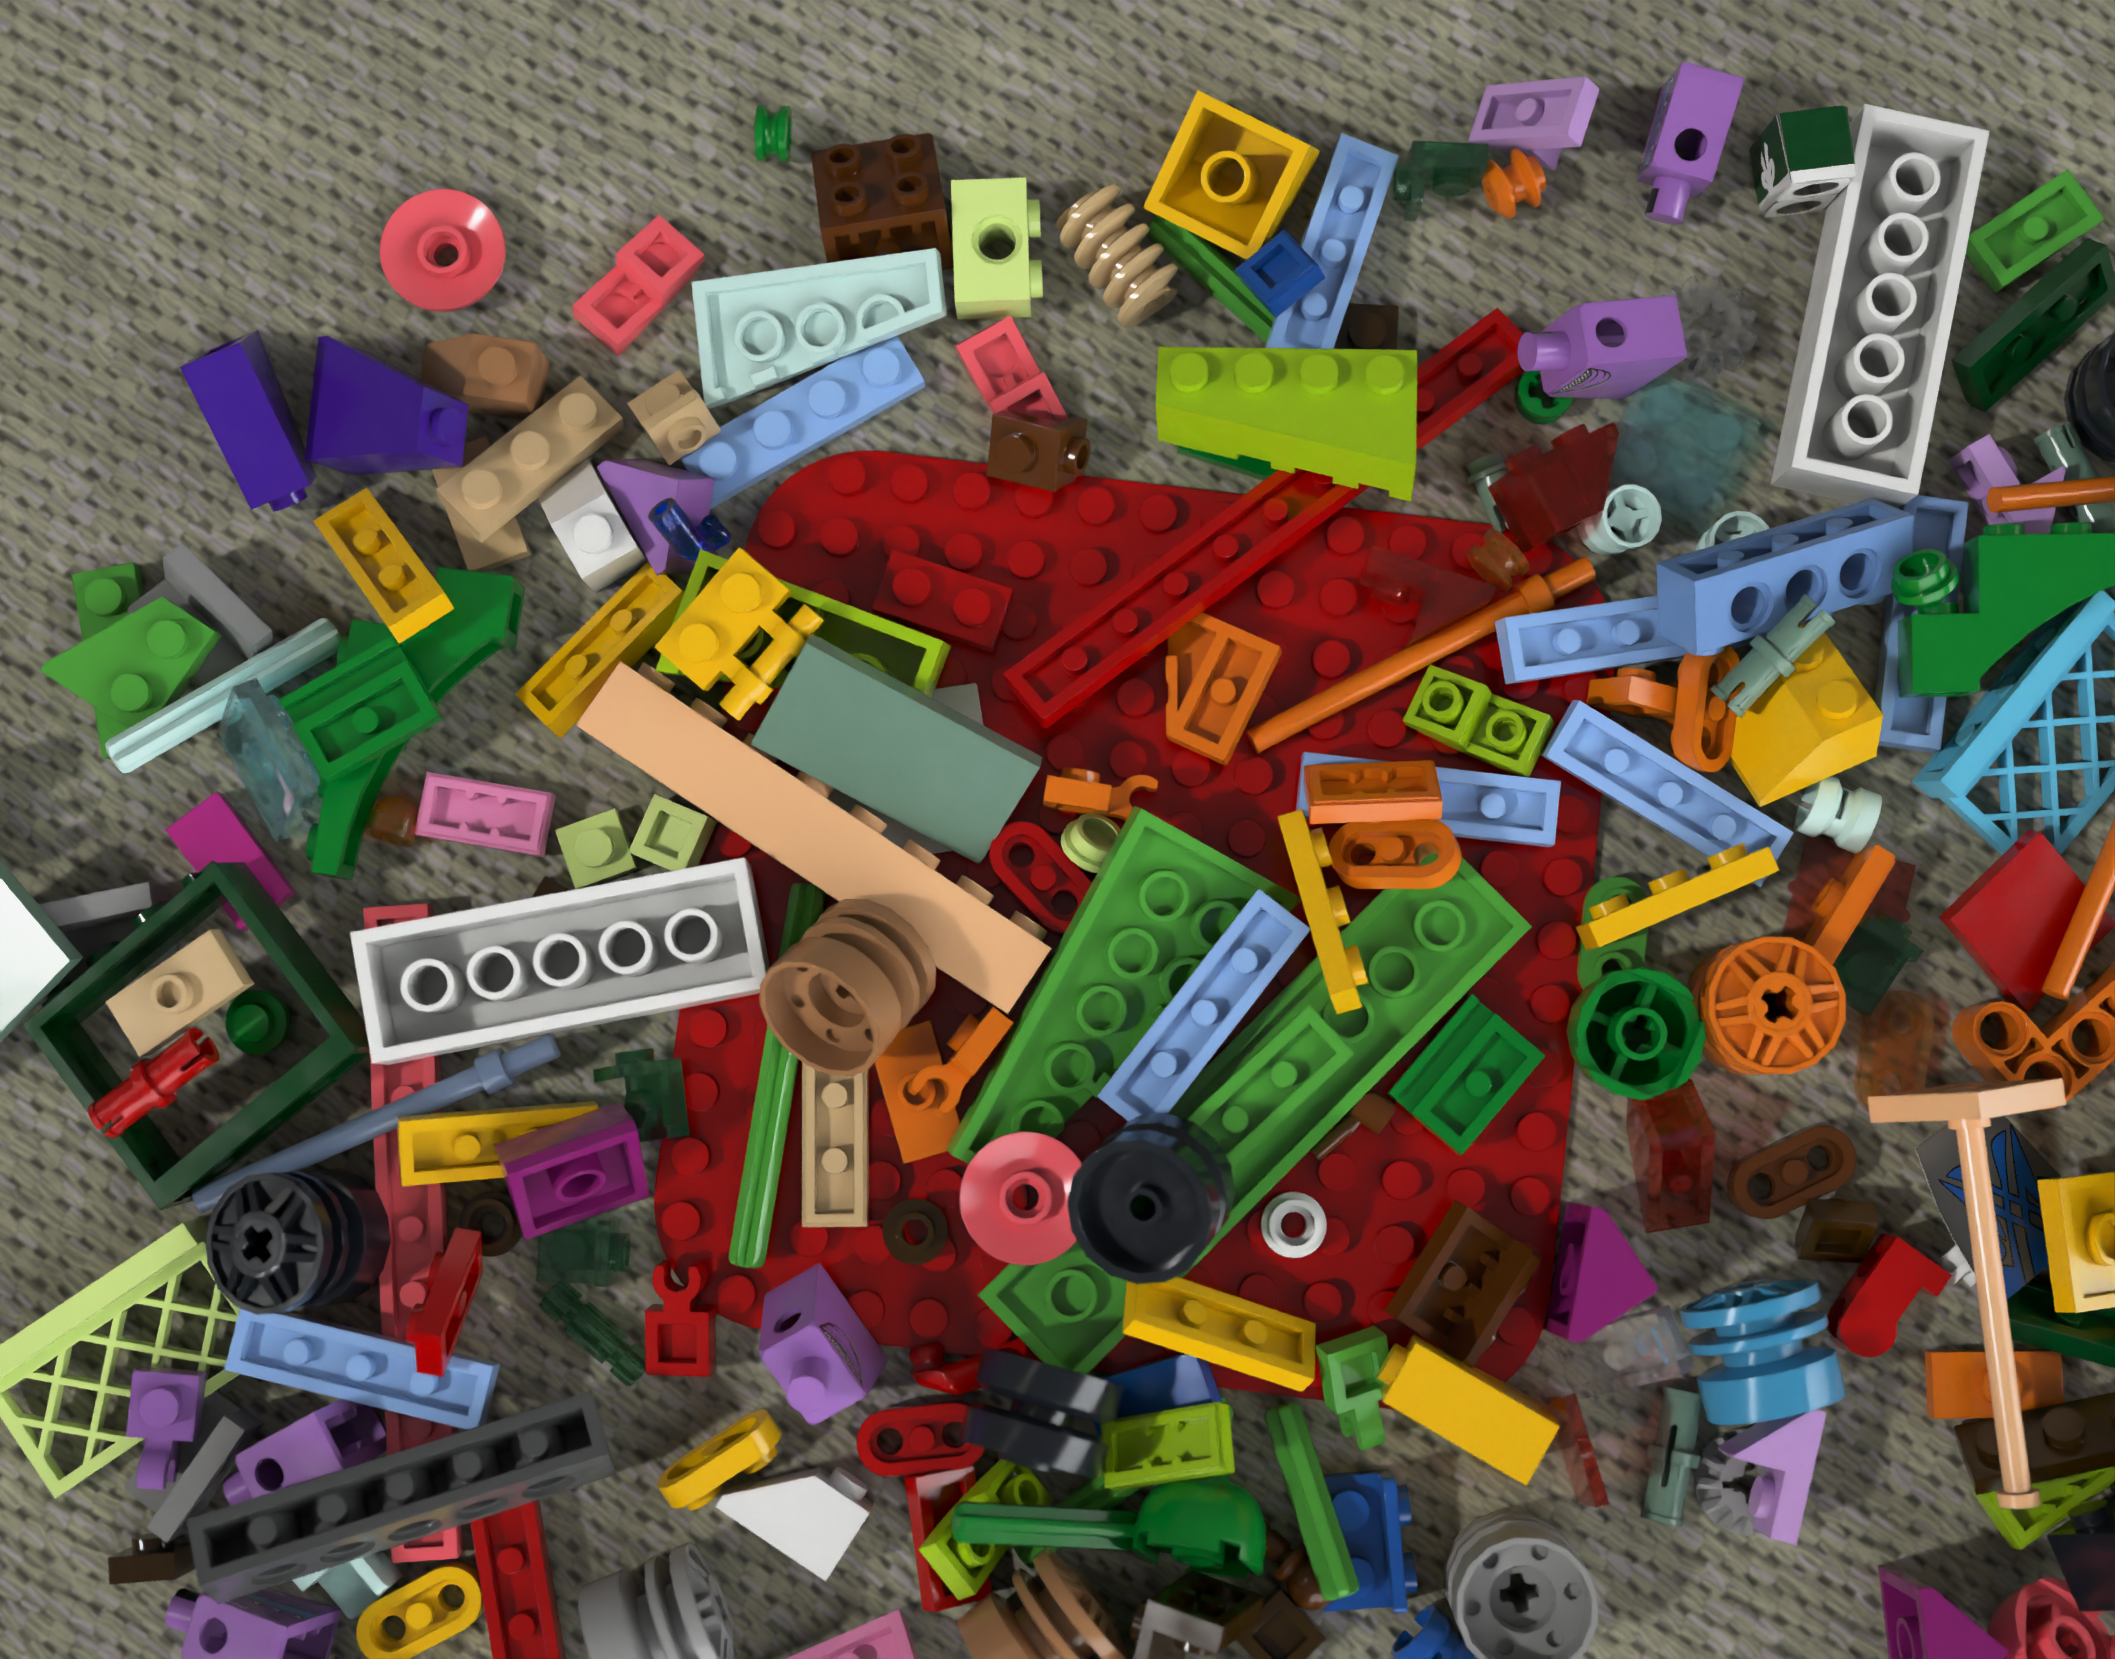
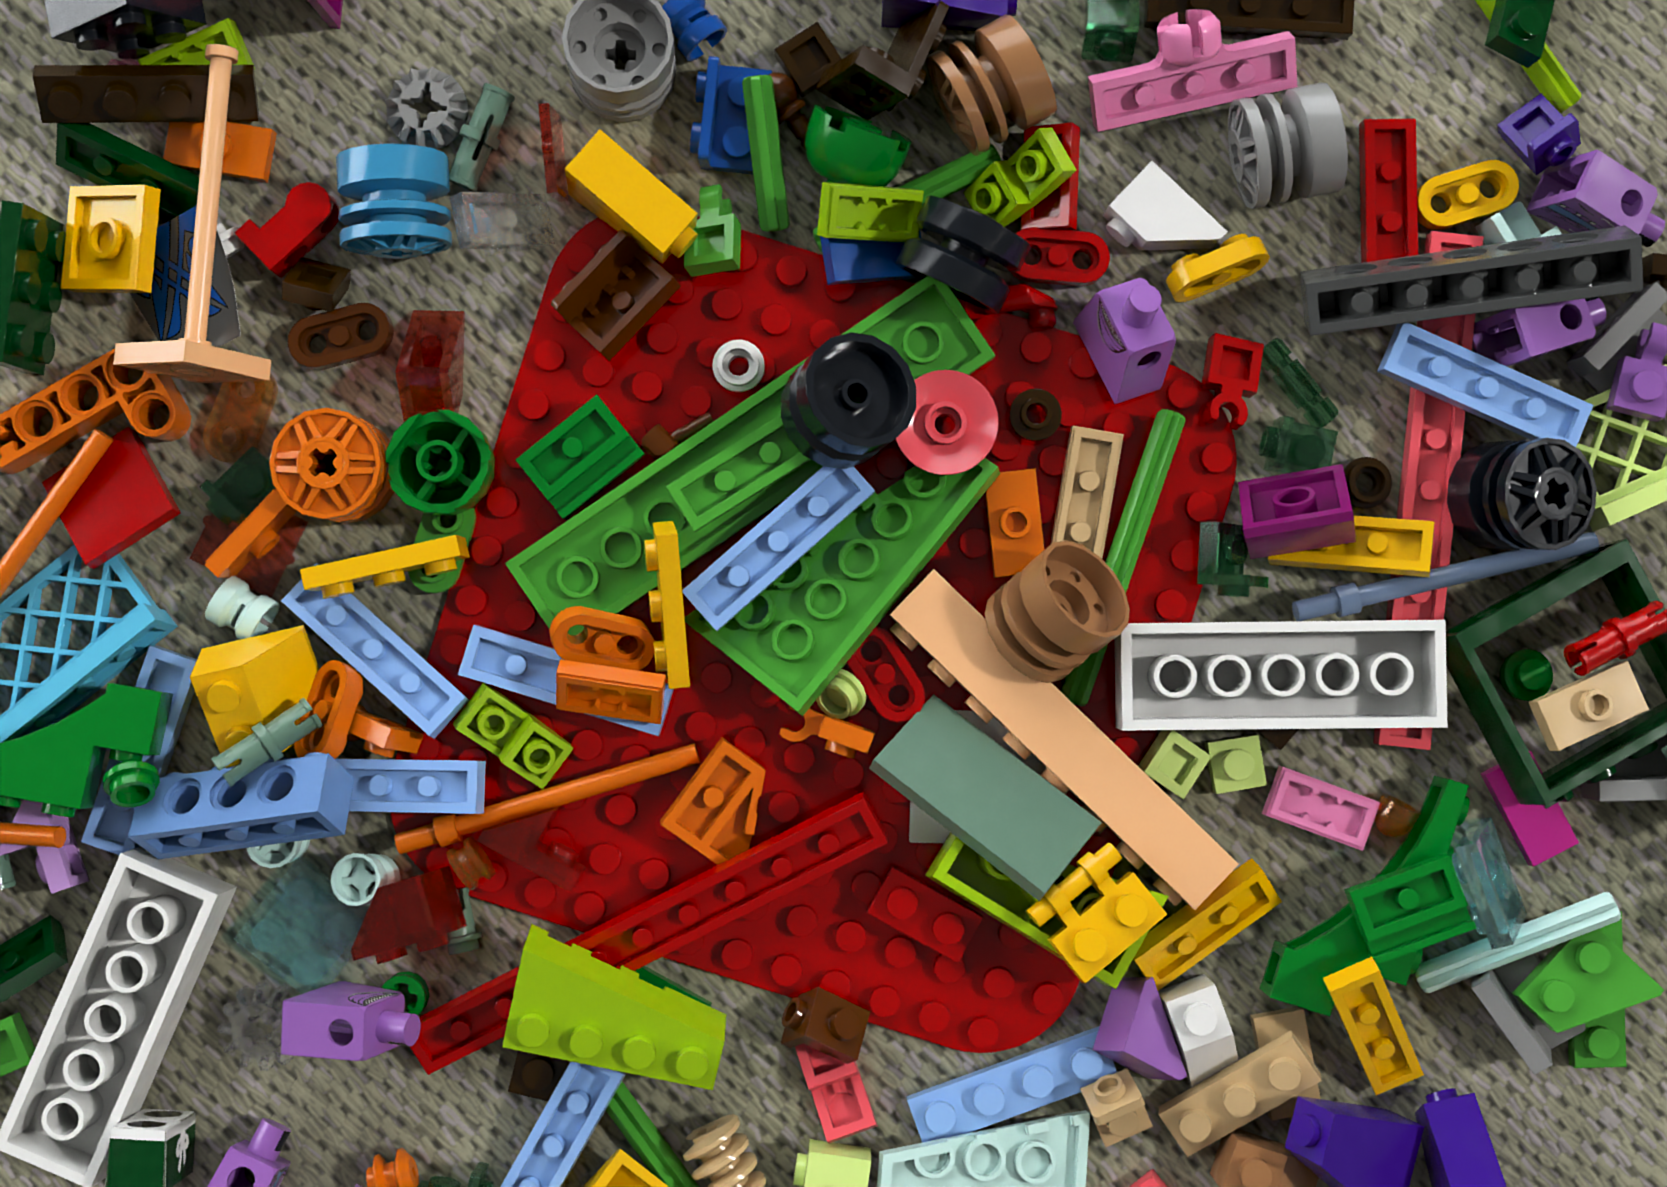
camera: 170 degrees left, 5 degrees up
(452, 1286) = (1405, 438): red plate -> none
(683, 534) = (1125, 1004): clear blue arm -> none
(972, 1045) = (965, 550): orange plate -> none
(1043, 1526) = (976, 170): green axle -> none
(1222, 1330) = (809, 291): yellow plate -> none
(1280, 273) = (600, 1134): blue tile -> none
(1593, 1275) = (513, 281): magenta slope -> none
(1789, 1453) = (392, 115): lavender slope -> none

